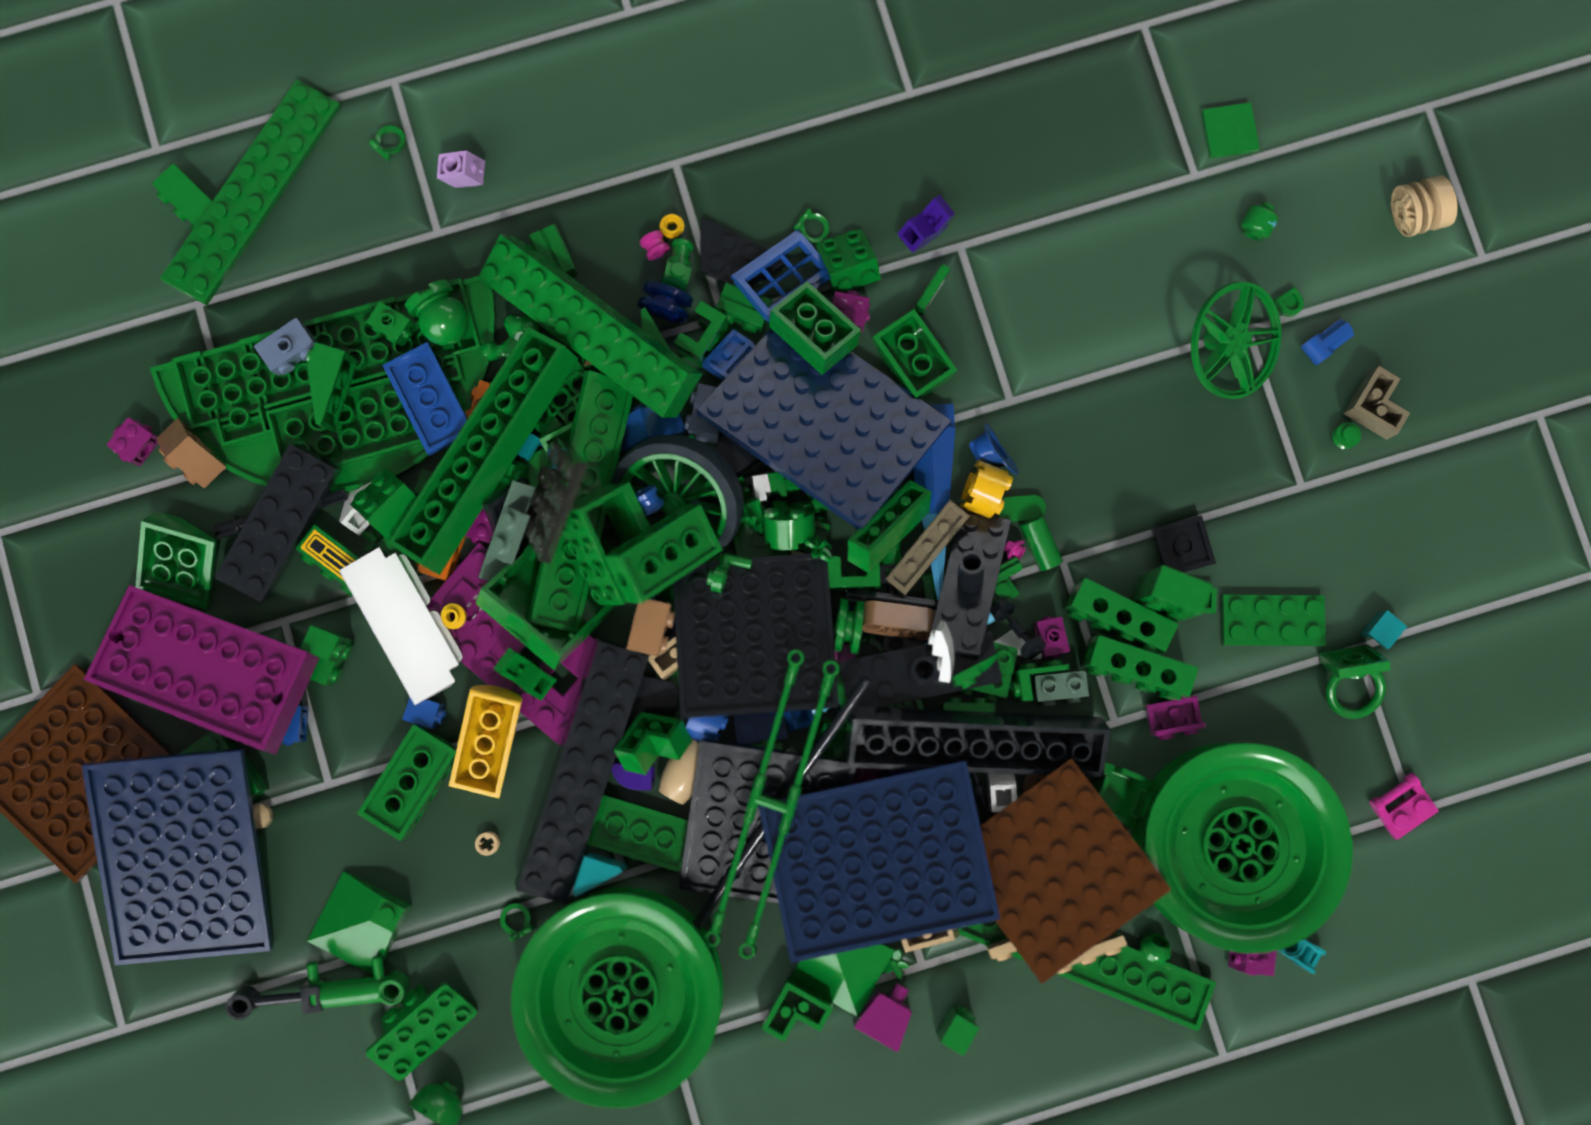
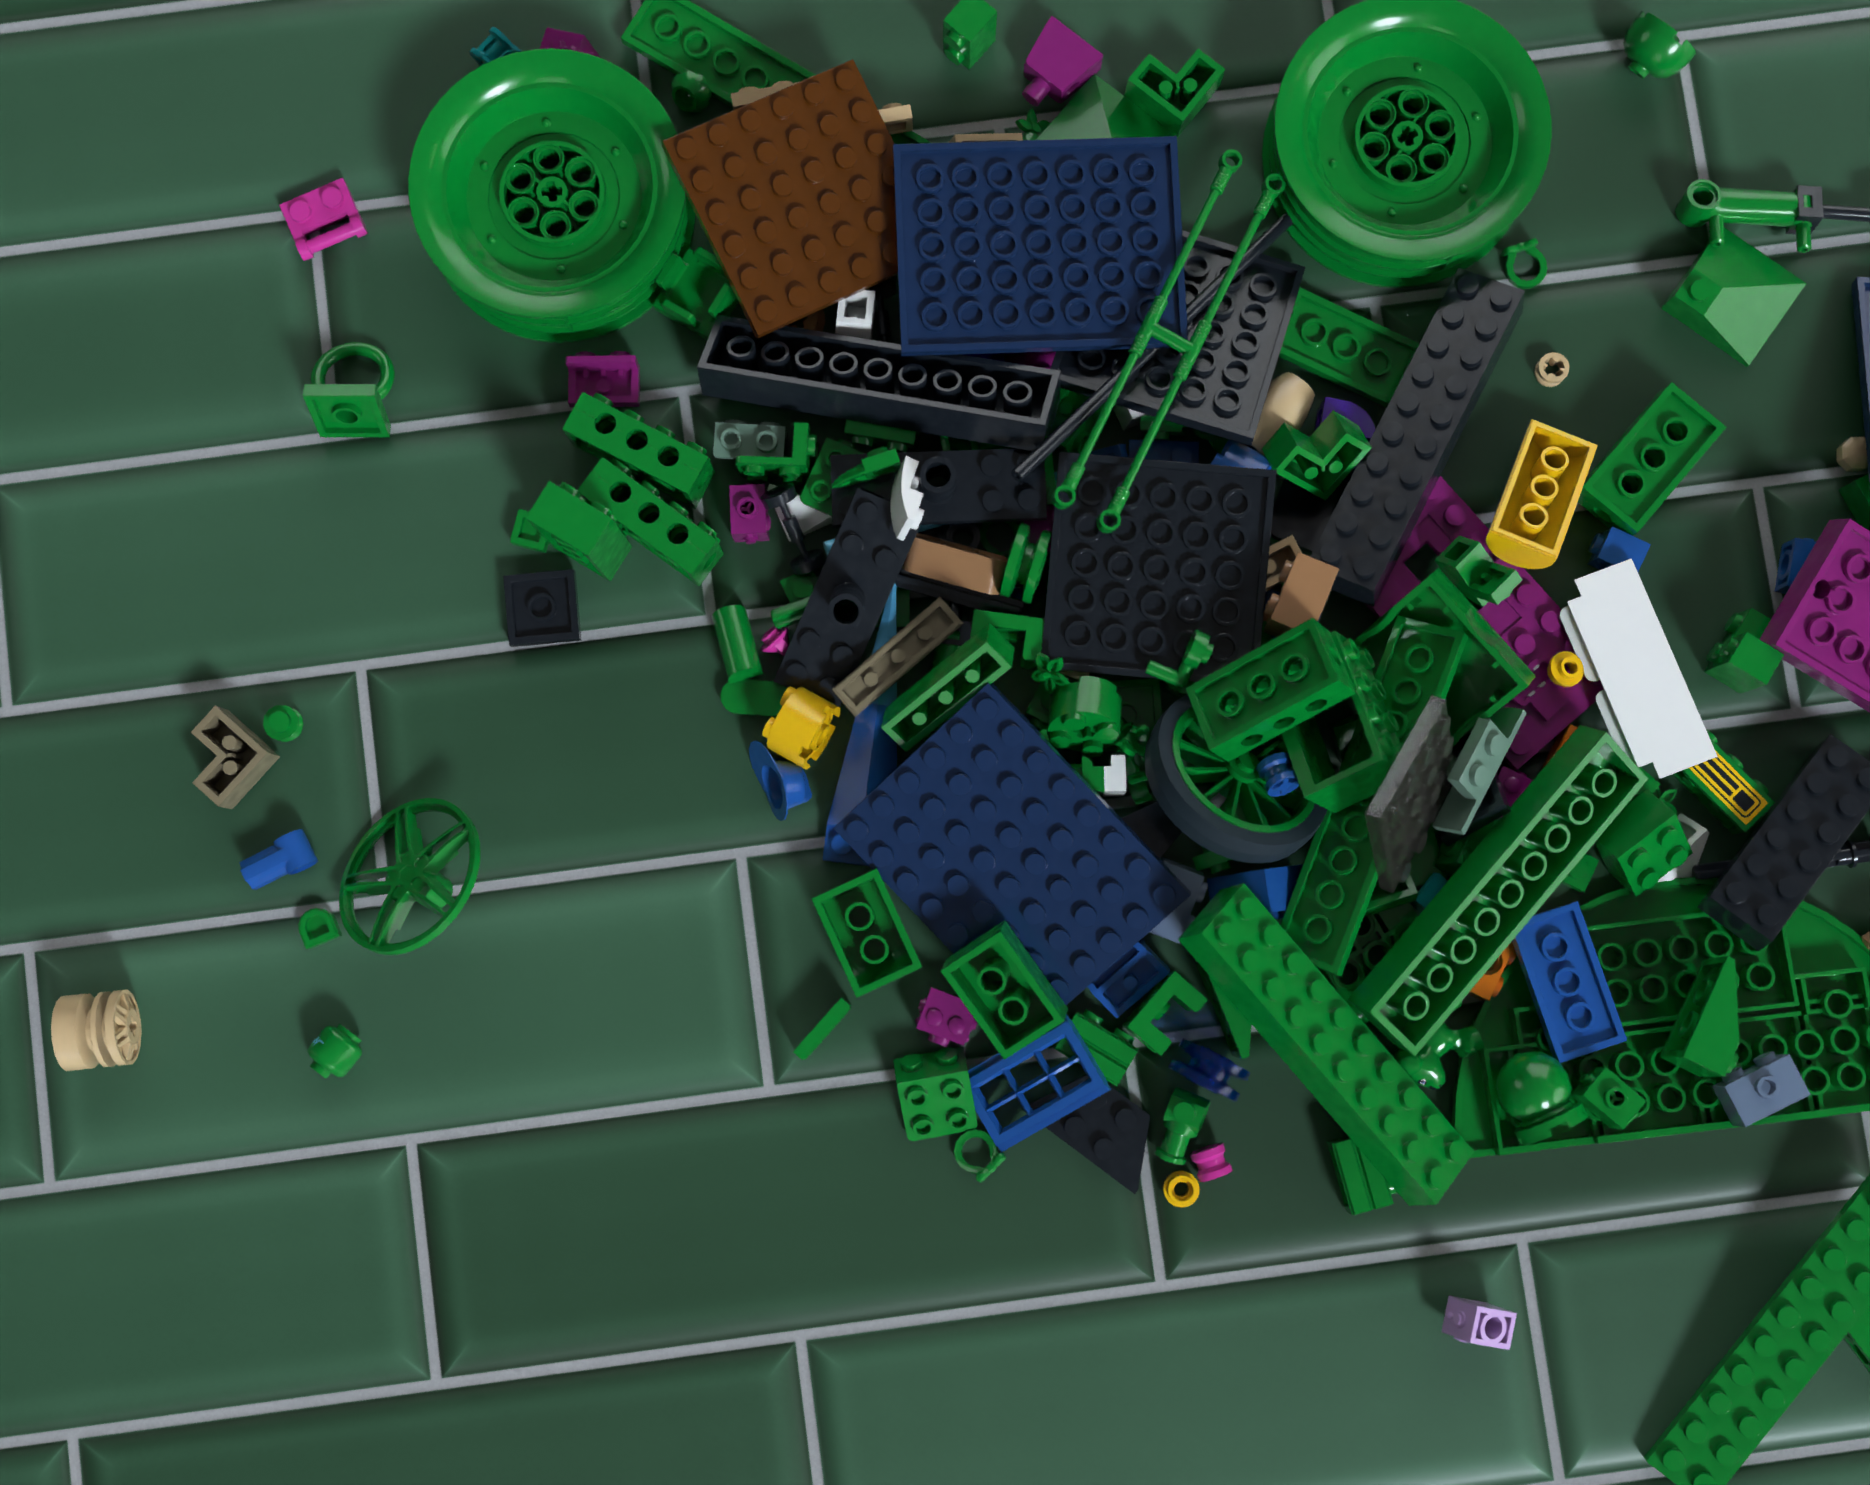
camera: 170 degrees left, 0 degrees up
(385, 153) = (1584, 1372): green piece -> none
(419, 1028) = (1670, 148): green bracket -> none
(596, 870) = (1409, 303): teal slope -> none
(926, 225) = (815, 1124): dark purple brick -> none
(1230, 130) = (345, 1197): green tile -> none
(1273, 620) = (441, 489): green plate -> none
(1384, 629) = (296, 449): teal panel -> none

